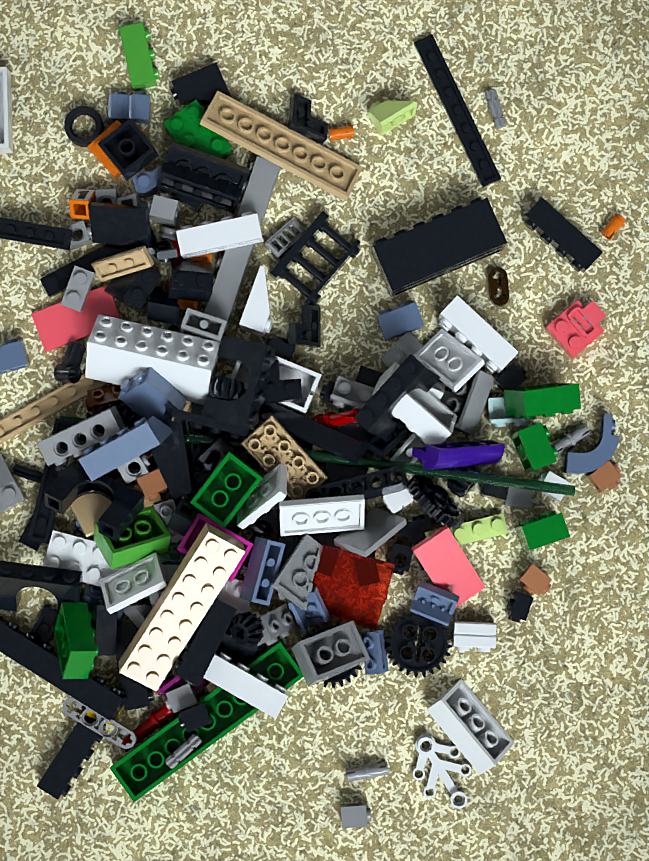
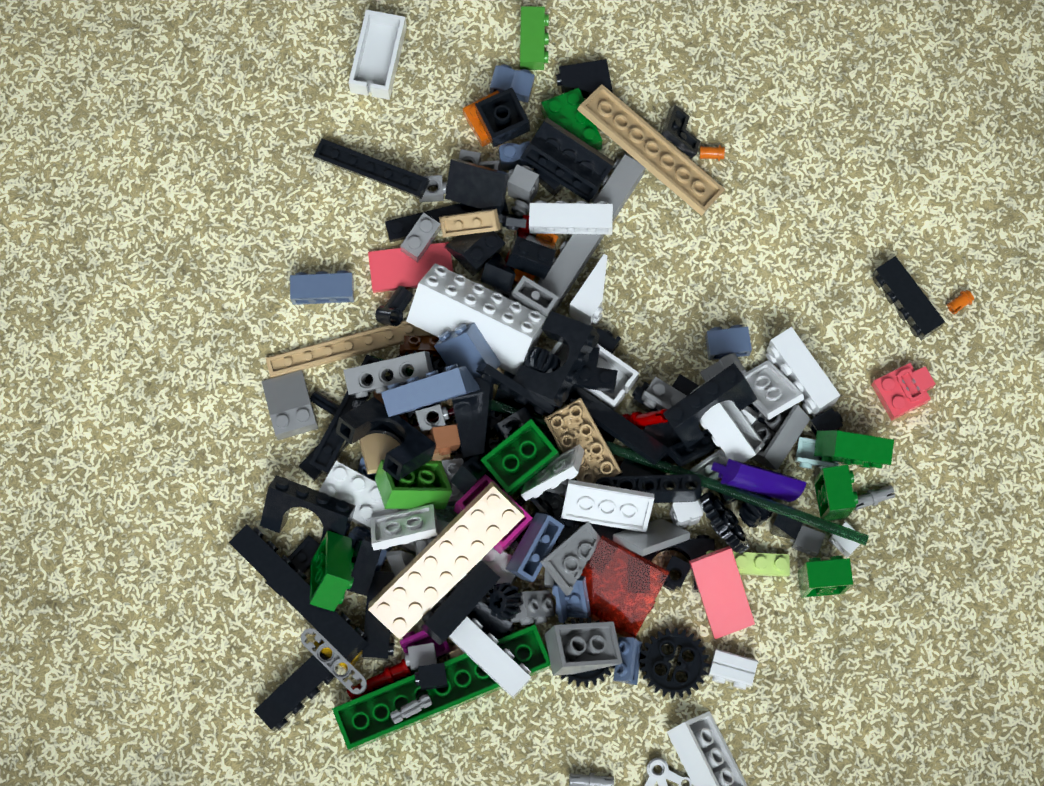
camera: 15 degrees right, 10 degrees down
(79, 111) = (458, 76): black tyre -> none
(79, 203) = (442, 157): orange brick -> none
(285, 248) = (622, 251): light grey slope -> none
(308, 240) = (655, 245): black fence -> none
(309, 332) = (634, 330): black plate -> none
(391, 114) = (765, 145): yellowish green slope -> none
(434, 603) = (700, 624): sand blue bracket -> none
(438, 246) = (783, 279): black brick -> none
(457, 111) = (830, 159): black tile -> none
(495, 109) = (868, 165): light grey axle -> none
(503, 287) = (828, 333): dark brown beam -> none
(519, 606) = (785, 650): black brick -> none
(535, 580) = (807, 629): nougat brick -> none
(586, 462) = (885, 524): sand blue arch -> none
(605, 476) = (900, 542): nougat brick -> none

